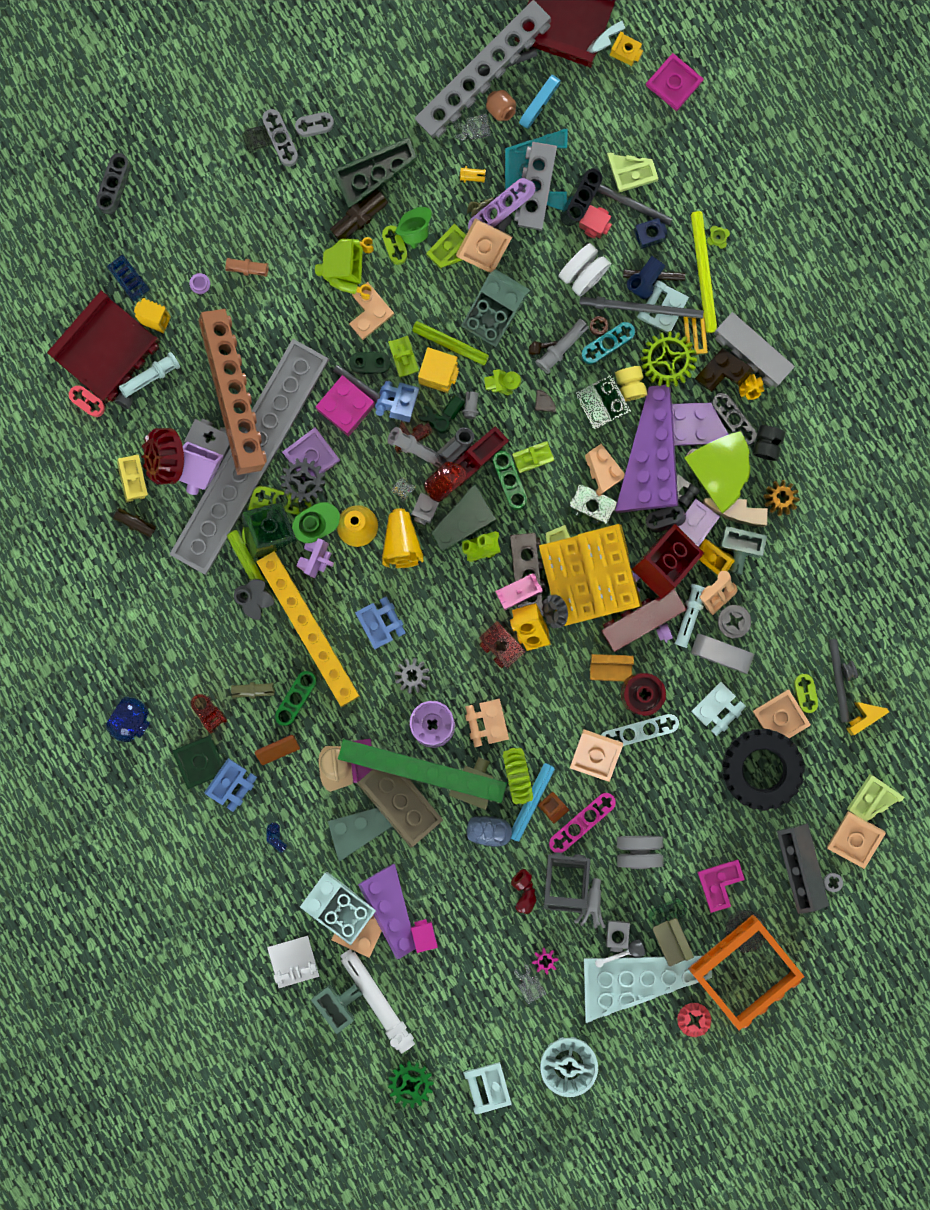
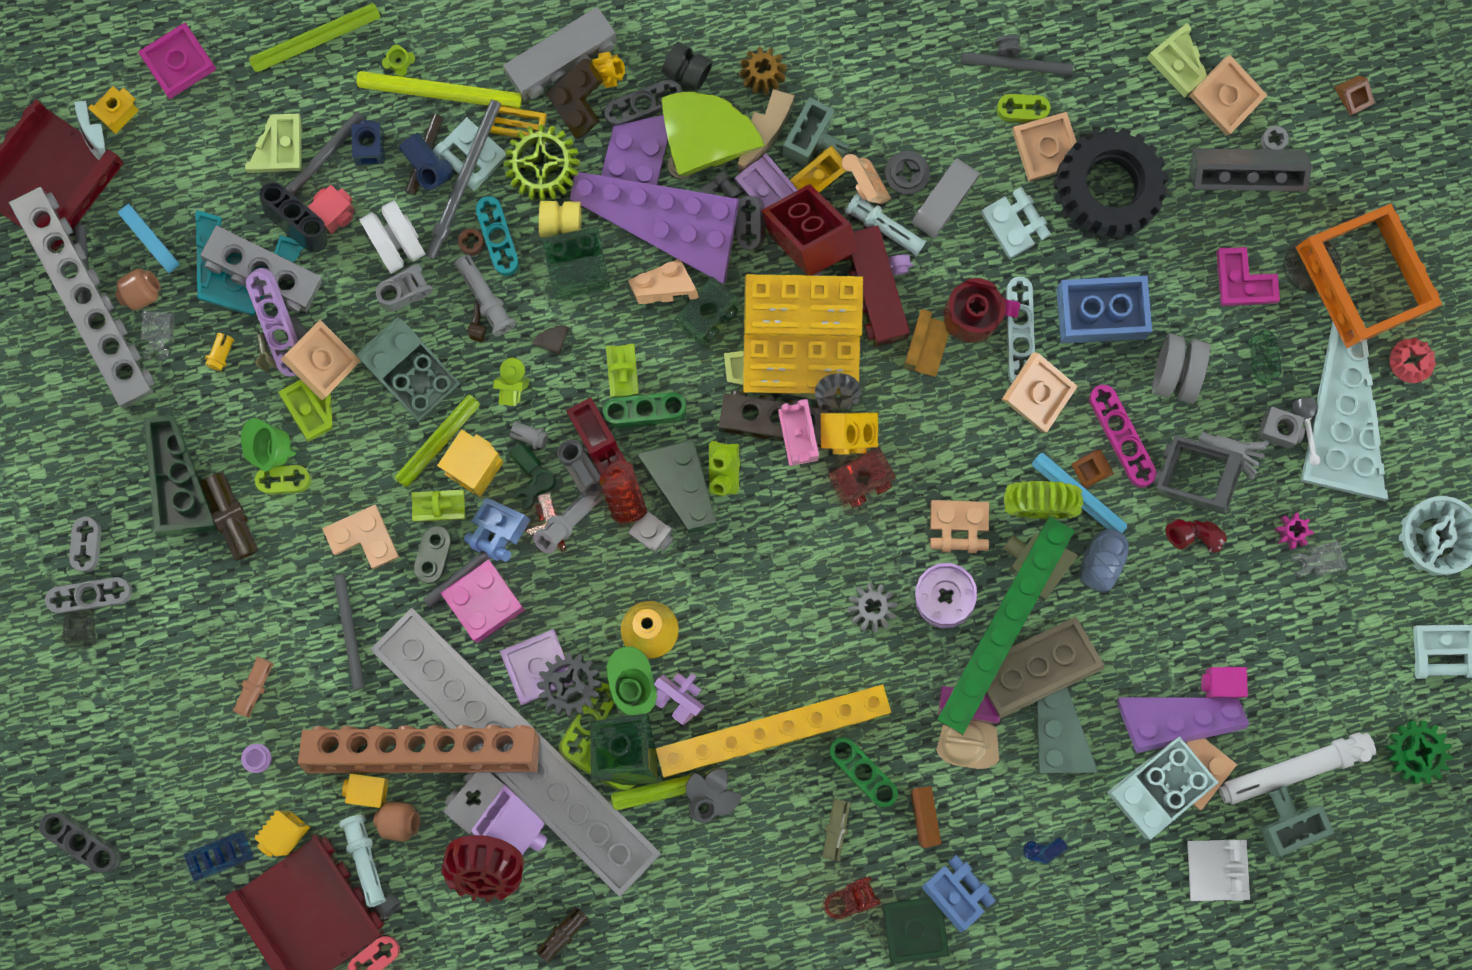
camera: 80 degrees left, 5 degrees down
(132, 478) = (499, 922): light yellow hinge -> none
(181, 390) = (397, 821): none -> nougat head
(196, 363) = (365, 790): none -> yellow brick
(301, 321) = (349, 632): none -> dark grey bar
(344, 265) = (290, 552): lime torso -> none
(374, 626) = (793, 640): medium blue plate -> none
(401, 541) = (687, 573): yellow cone -> none
(403, 489) = (617, 553): clear wheel -> none
(552, 289) = (404, 287): none -> light grey piece
(653, 720) = (1012, 308): none -> dark pink hand
(669, 786) = (1104, 309): none -> medium blue brick
(672, 942) = (1307, 357): olive panel -> none
(718, 173) = (314, 37): none -> lime axle
(870, 715) = (1073, 36): yellow slope -> none
(884, 934) = (1355, 94): none -> dark orange slope

